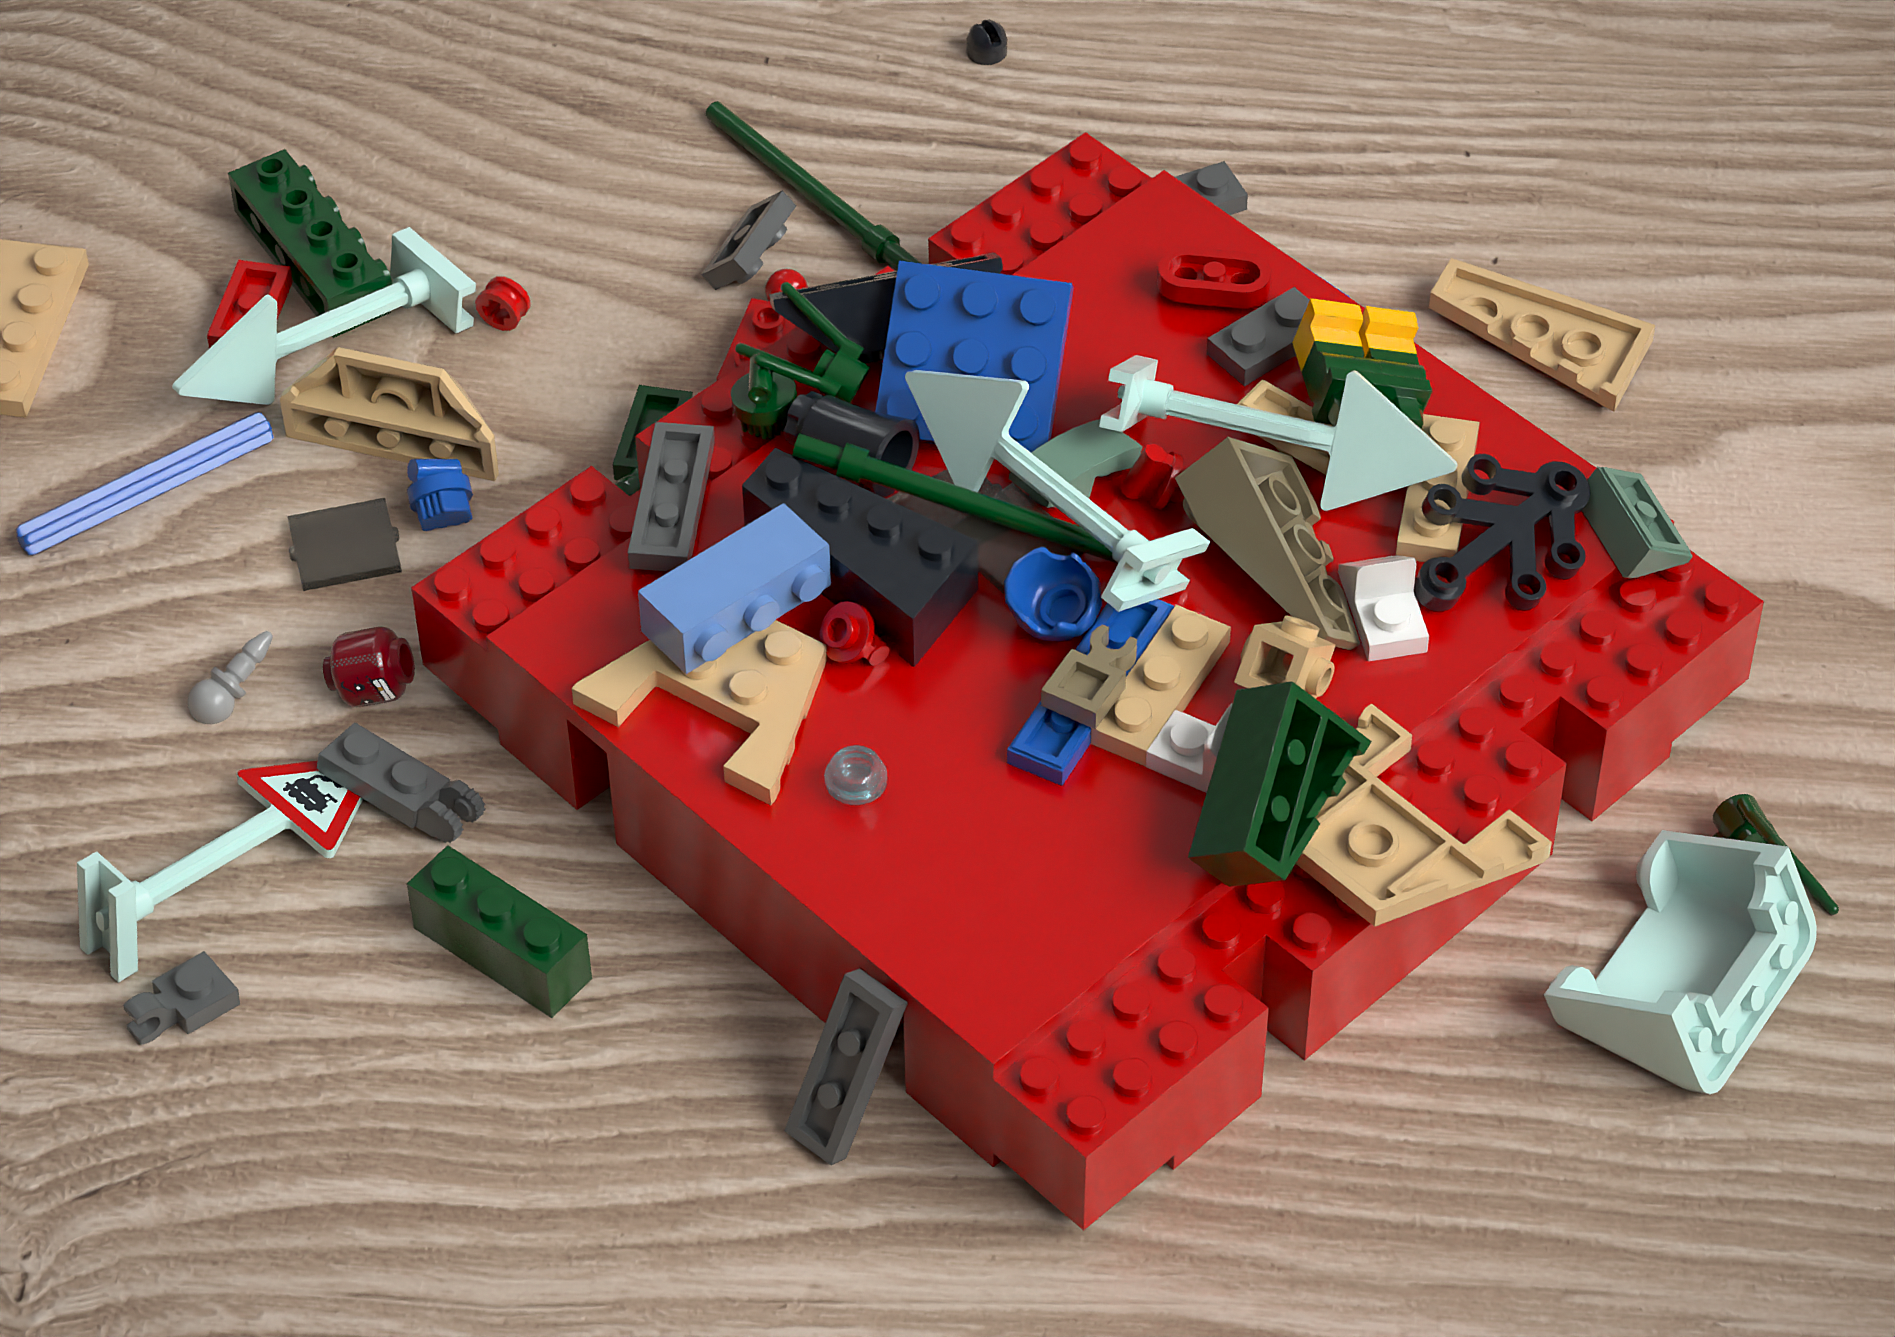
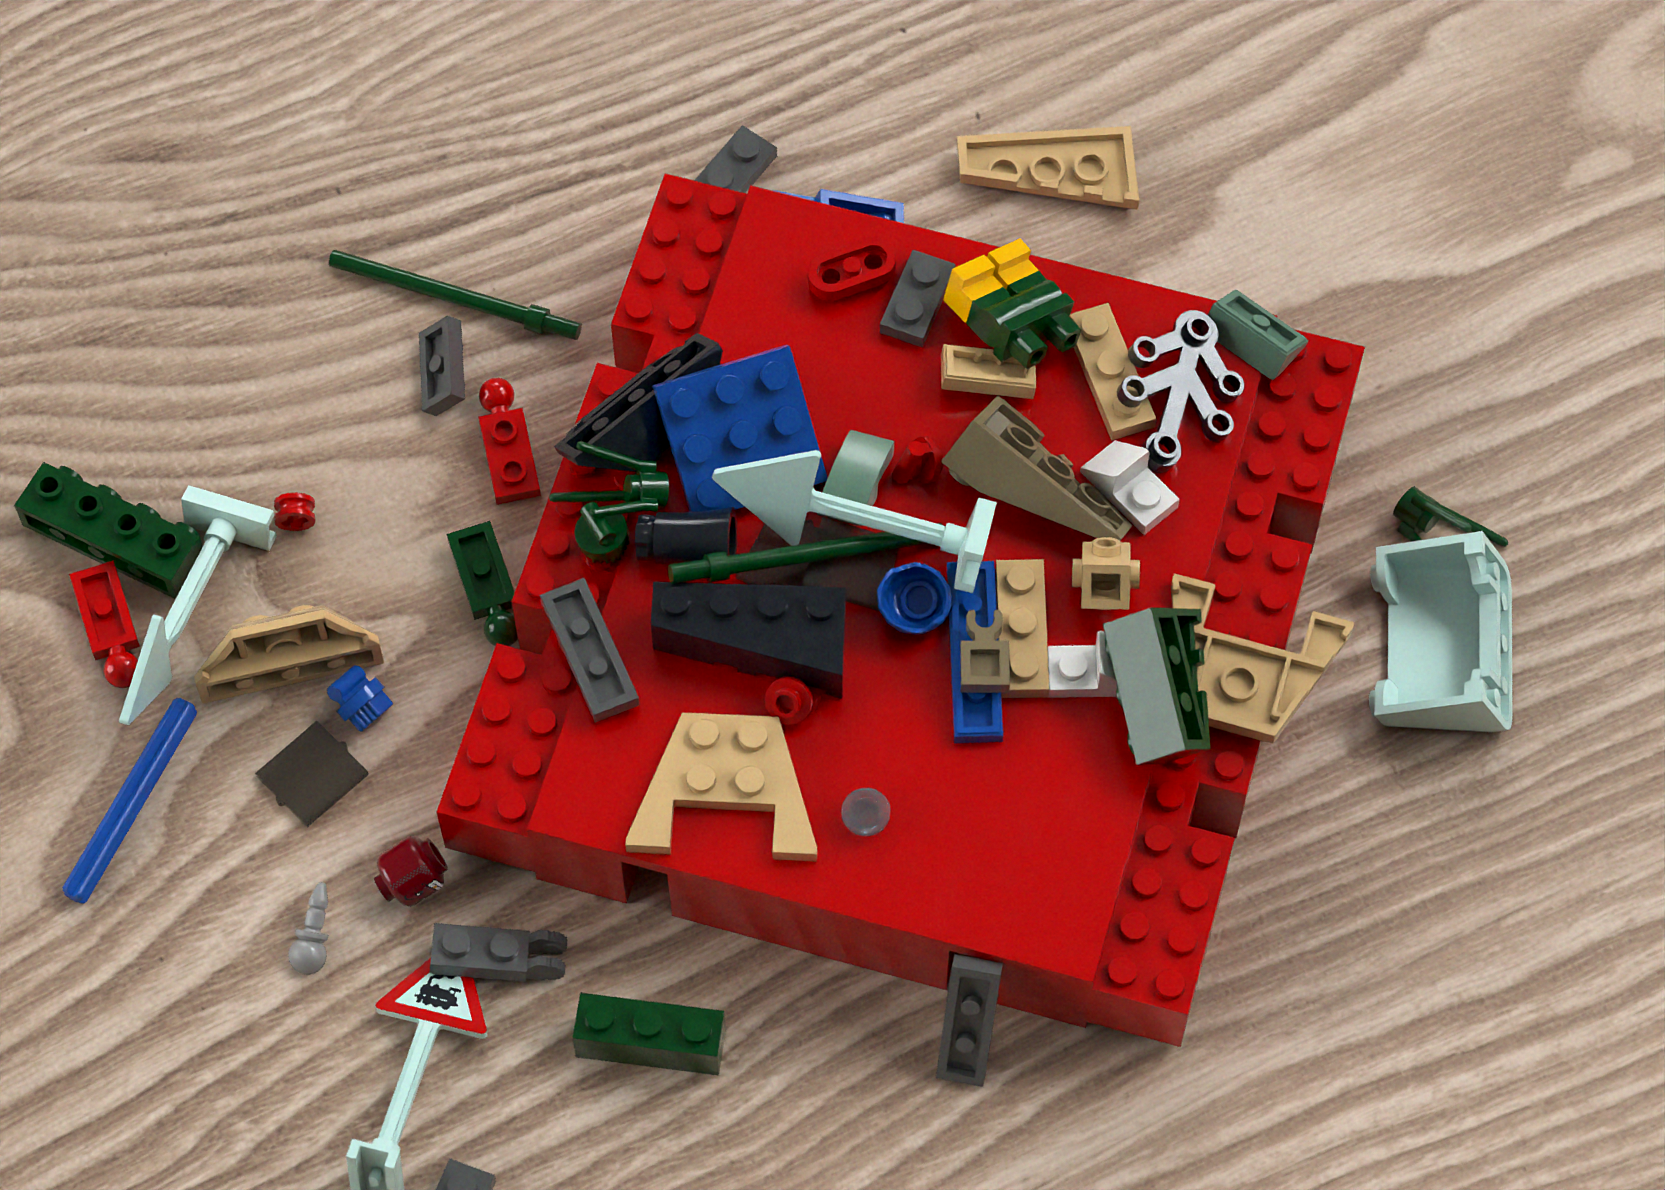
camera: 30 degrees left, 15 degrees up
(734, 588) = (702, 713): medium blue brick -> none
(979, 44) = (496, 104): black hinge -> none
(1369, 448) = (1058, 370): light aqua piece -> none

